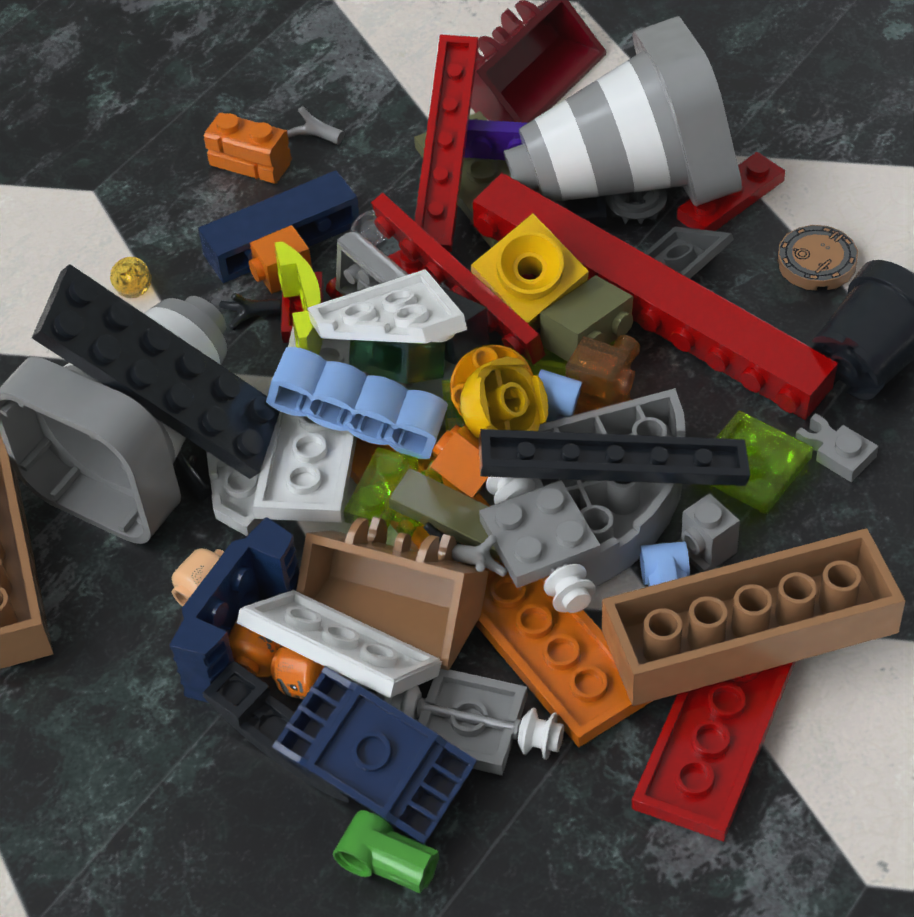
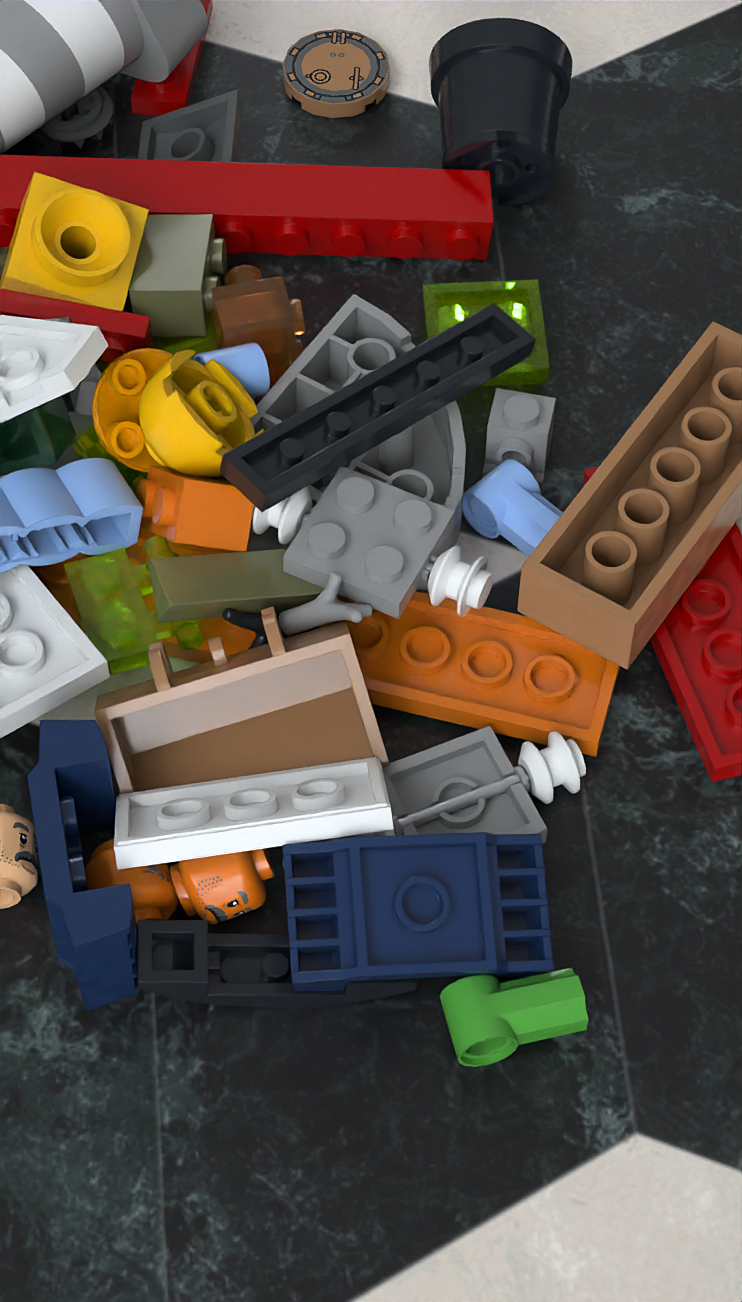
camera: 45 degrees left, 5 degrees up
(838, 450) = (560, 266): light grey plate -> none

